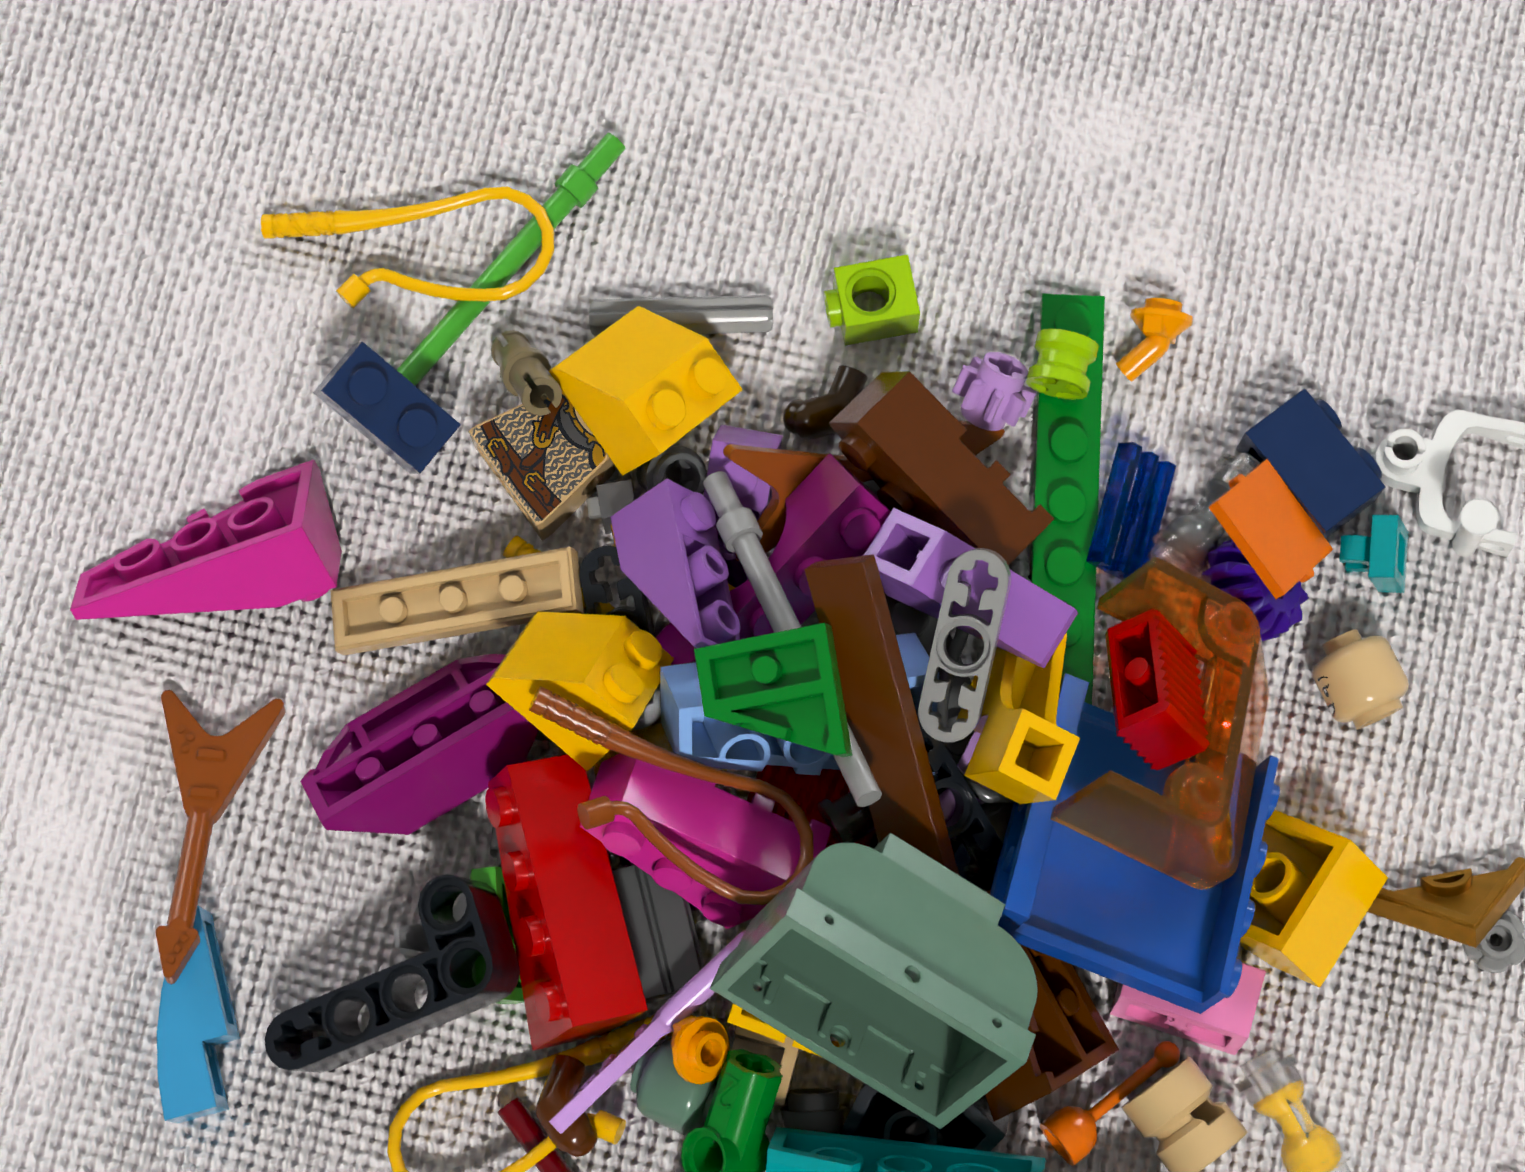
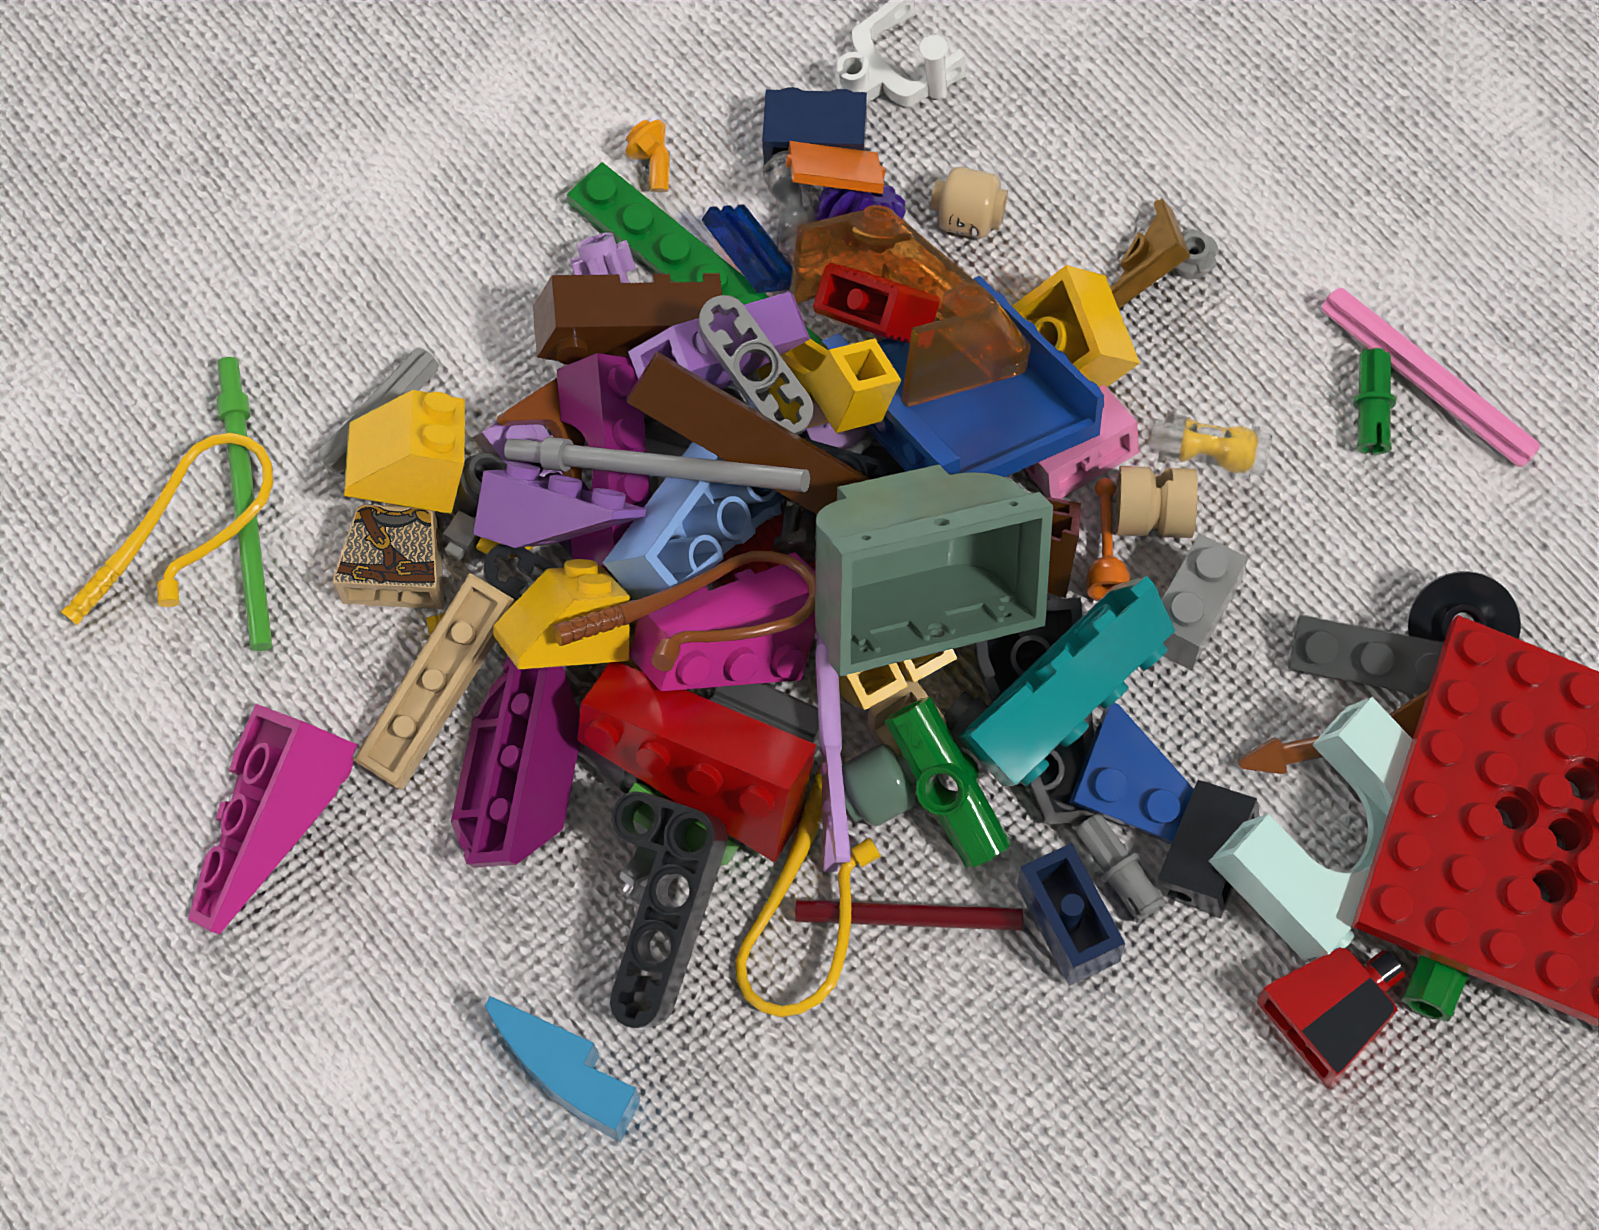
camera: 50 degrees left, 10 degrees down
(208, 778) = (407, 932): dark orange piece -> none
(387, 408) = (269, 622): dark blue brick -> none
(526, 372) = (328, 519): dark tan pin -> none
(558, 1090) = (823, 869): reddish brown arm -> none
(699, 1048) = (866, 737): light orange plate -> none
(778, 687) = (686, 480): green wing -> none
(812, 417) = (523, 372): dark brown arm -> none
(886, 277) = (475, 270): lime brick -> none
(1062, 364) = (624, 206): lime wheel -> none
(1380, 555) = (902, 134): teal tile -> none

